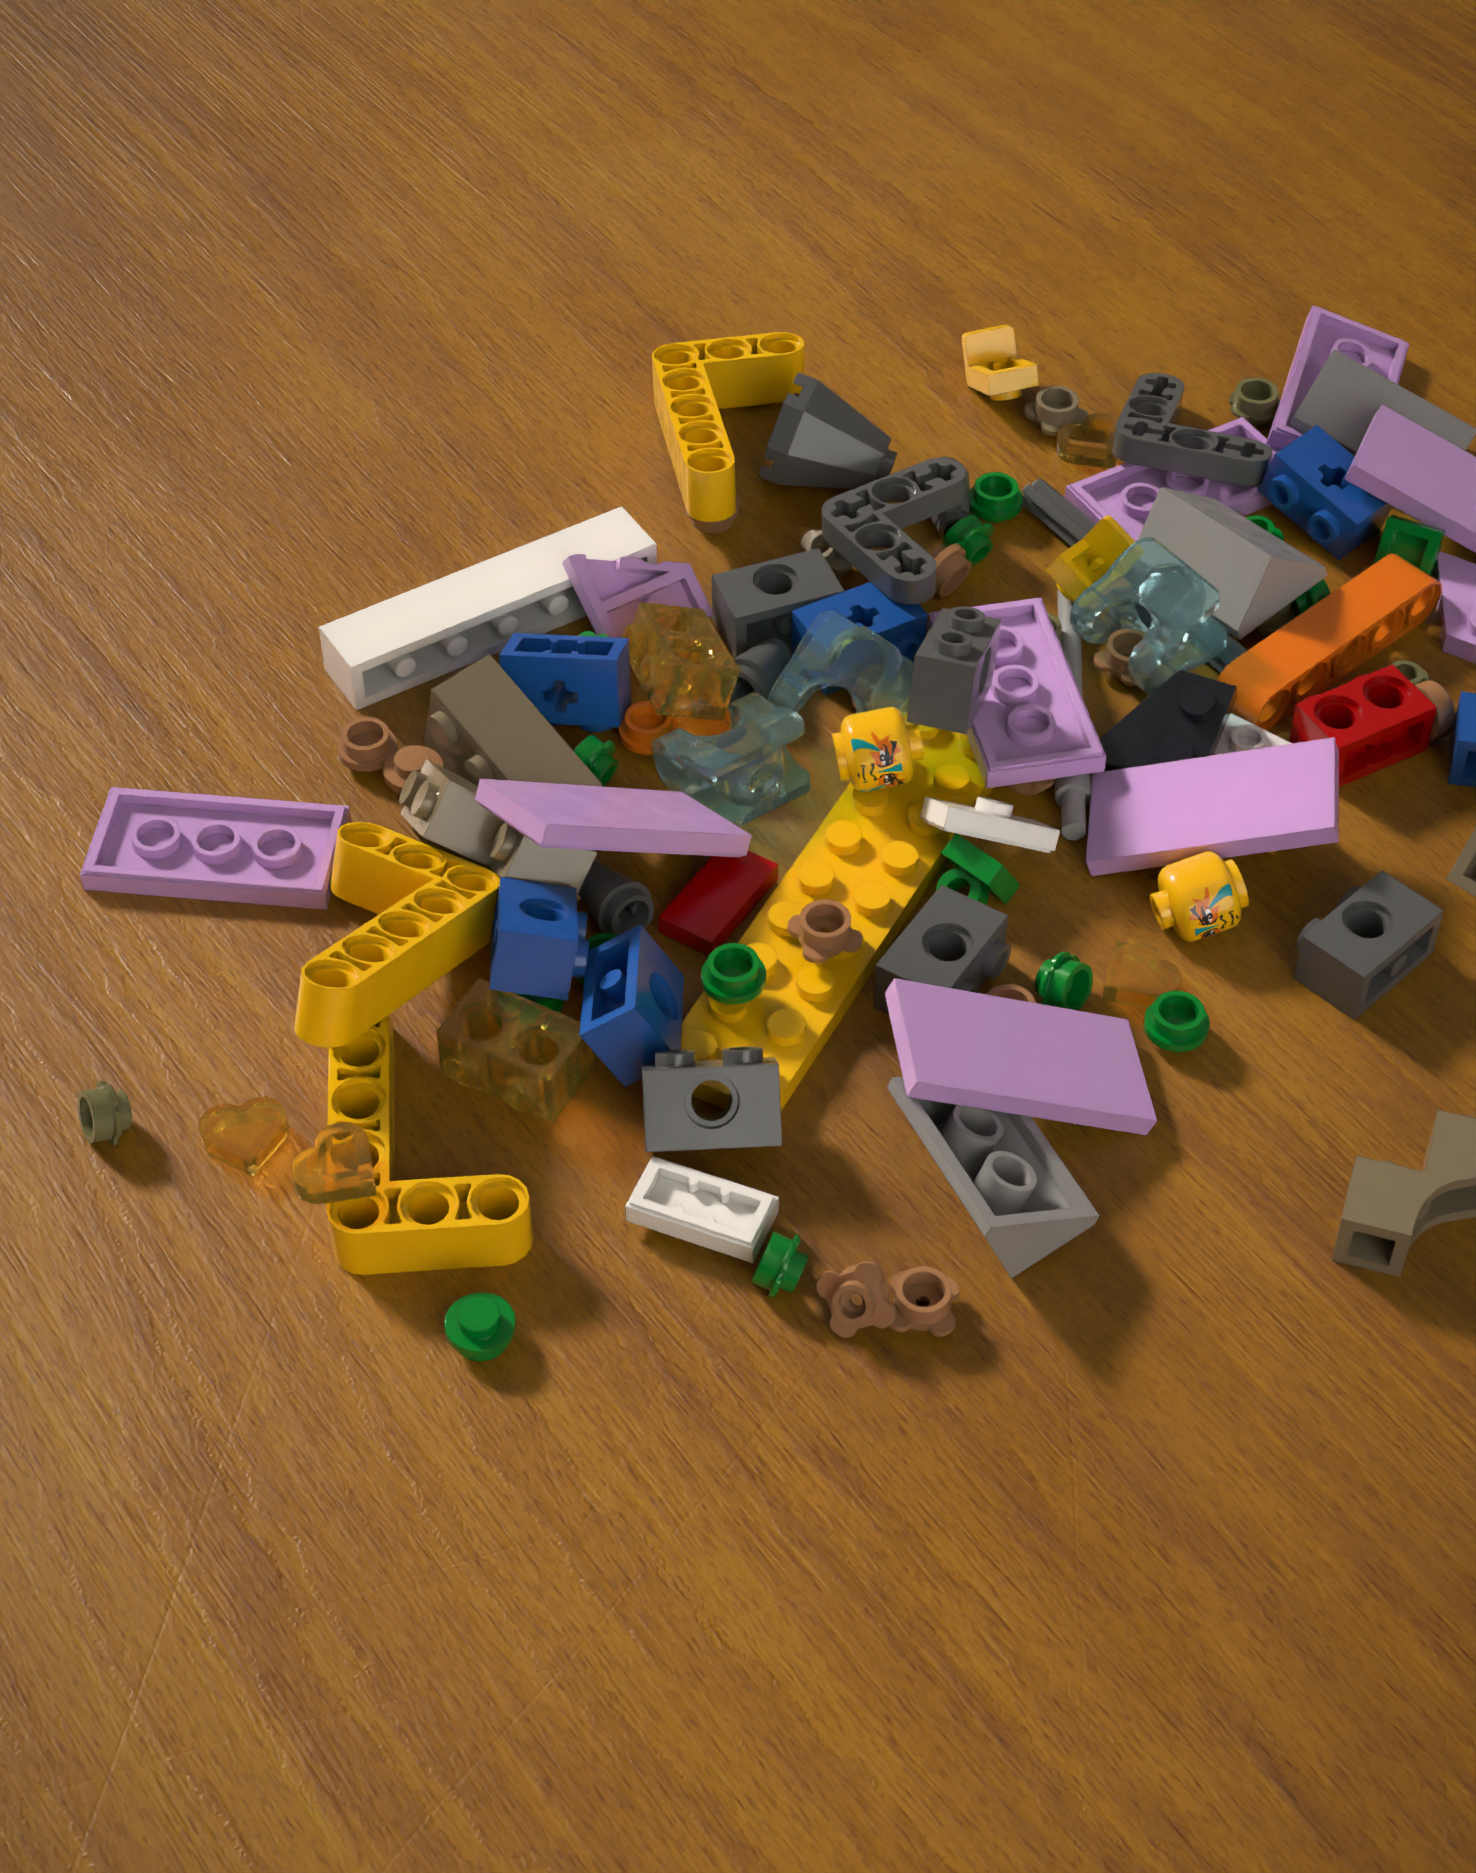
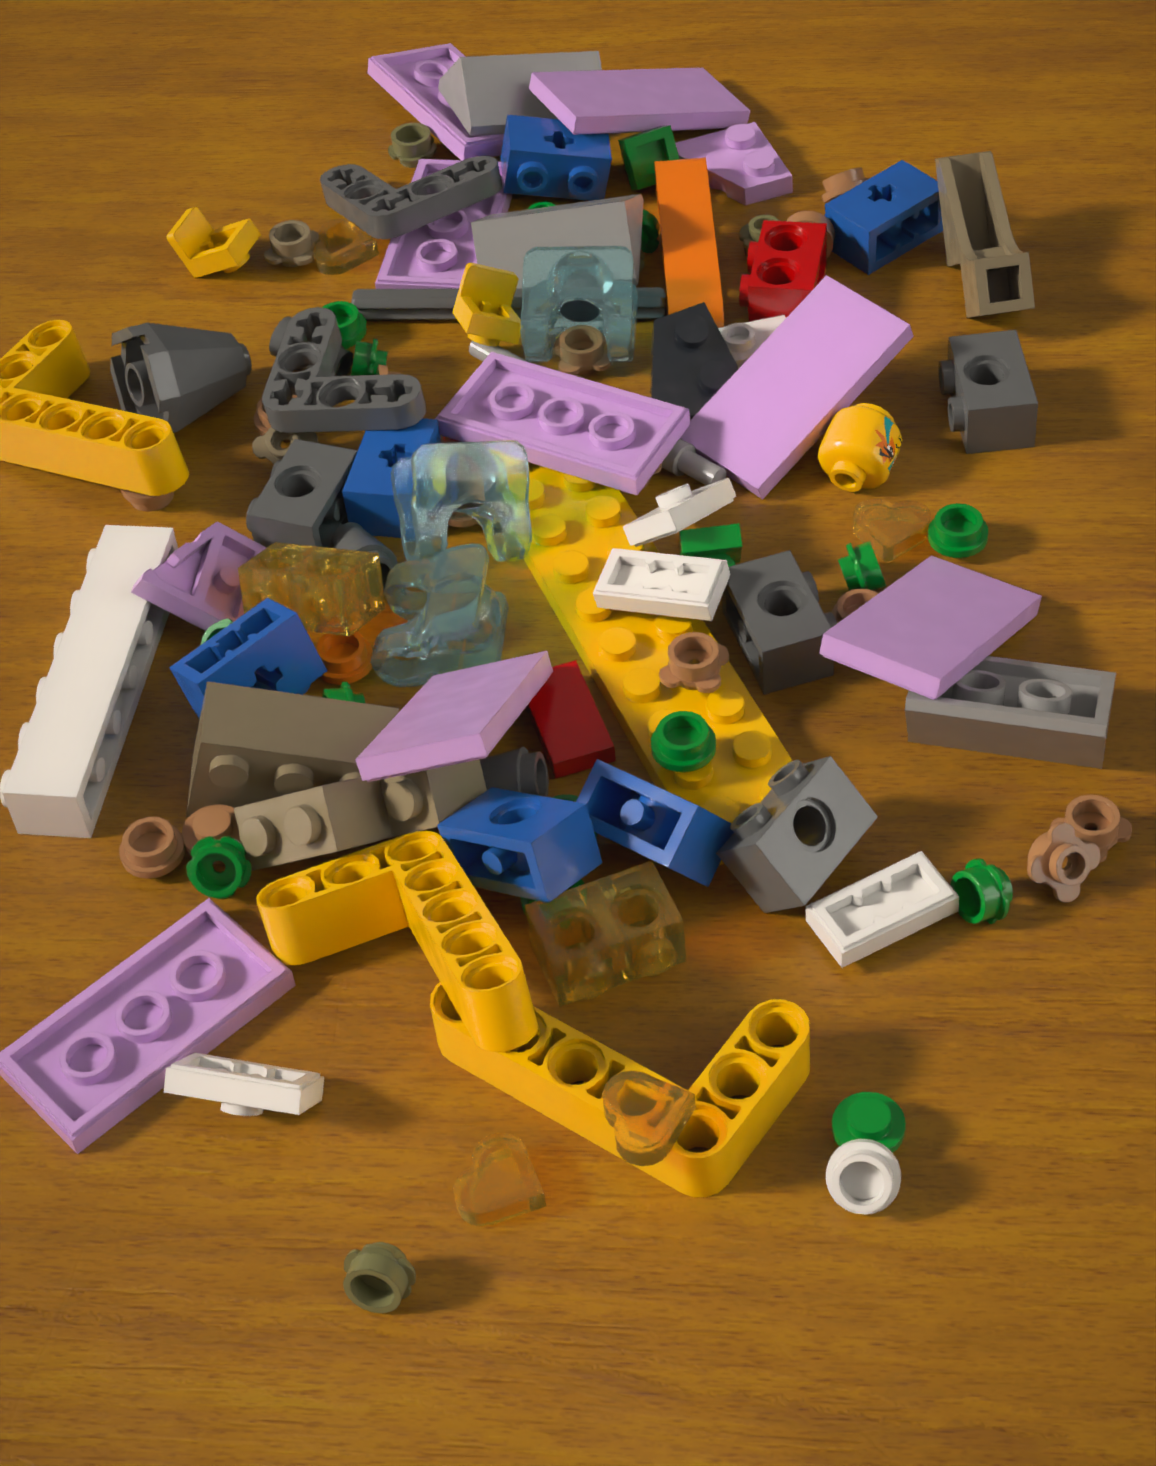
camera: 45 degrees left, 0 degrees up
(199, 933) = (244, 1086): none -> white plate
(376, 791) = (218, 883): none -> green plate
(421, 1347) = (863, 1176): none -> white plate
(877, 749) = (550, 523): yellow head -> none
(886, 858) = (662, 584): none -> white plate
(953, 669) = (549, 419): dark grey brick -> none

